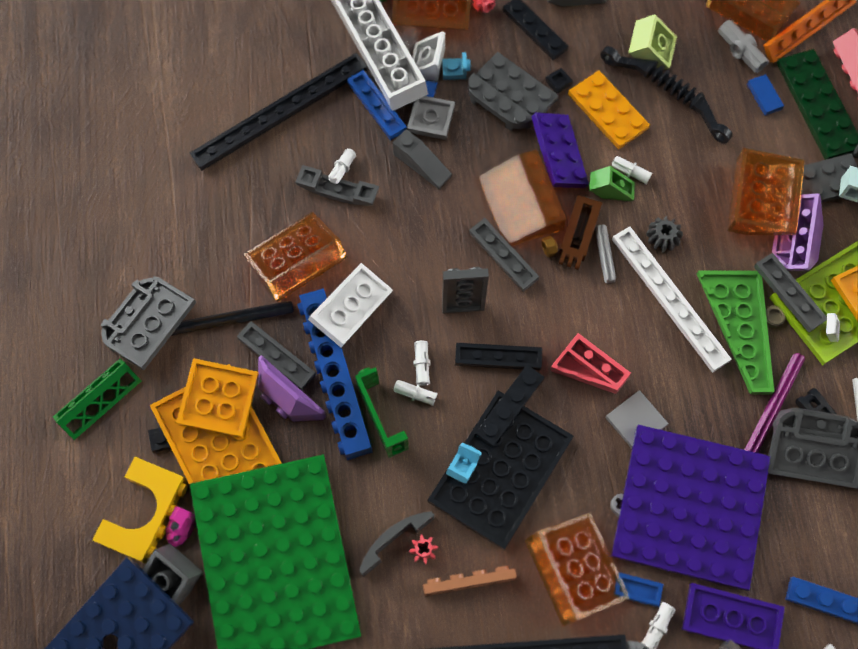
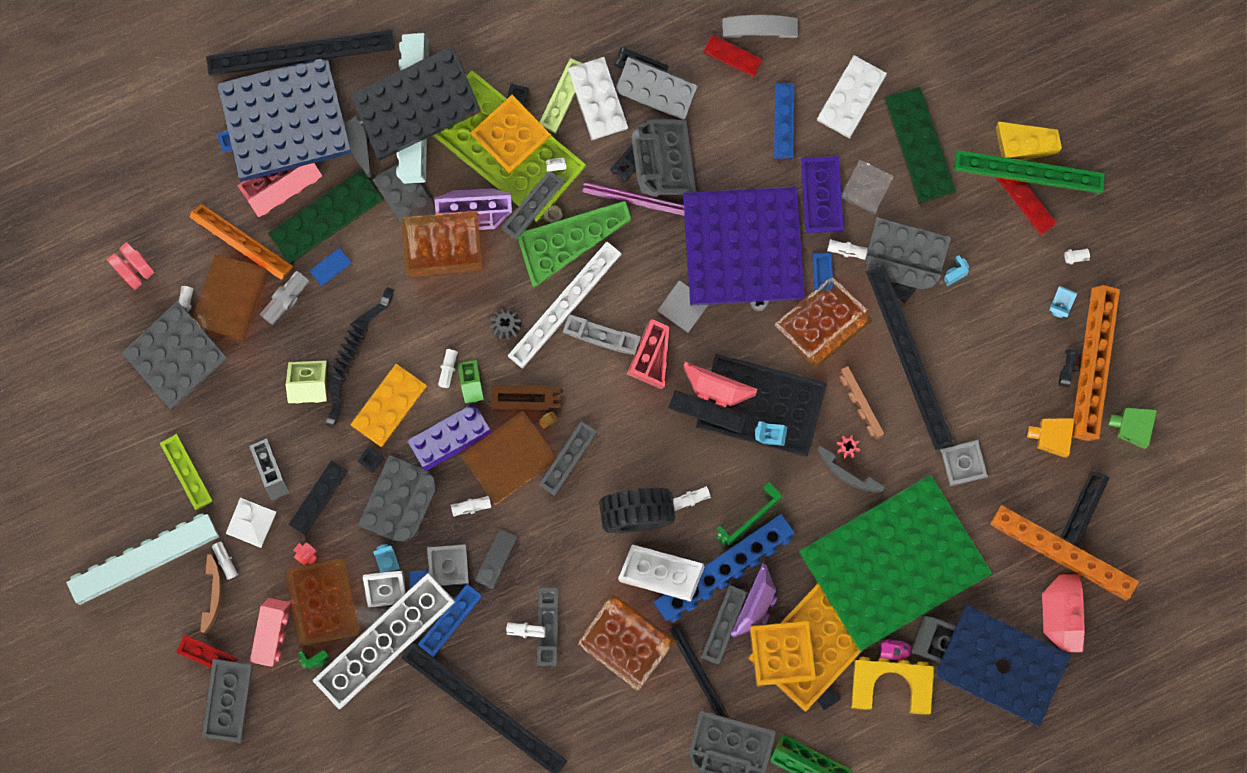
camera: 105 degrees left, 10 degrees up
(415, 392) = (718, 495): white axle -> none
(421, 293) = (637, 510): none -> black tyre
(464, 290) = (623, 471): dark grey plate -> none
(483, 152) = (470, 506): none -> white pin
(498, 356) = (664, 435): black plate -> none
(534, 421) = (717, 387): none -> coral wedge
(605, 254) = (538, 370): light grey axle -> none
(628, 323) = (601, 335): none -> light grey slope

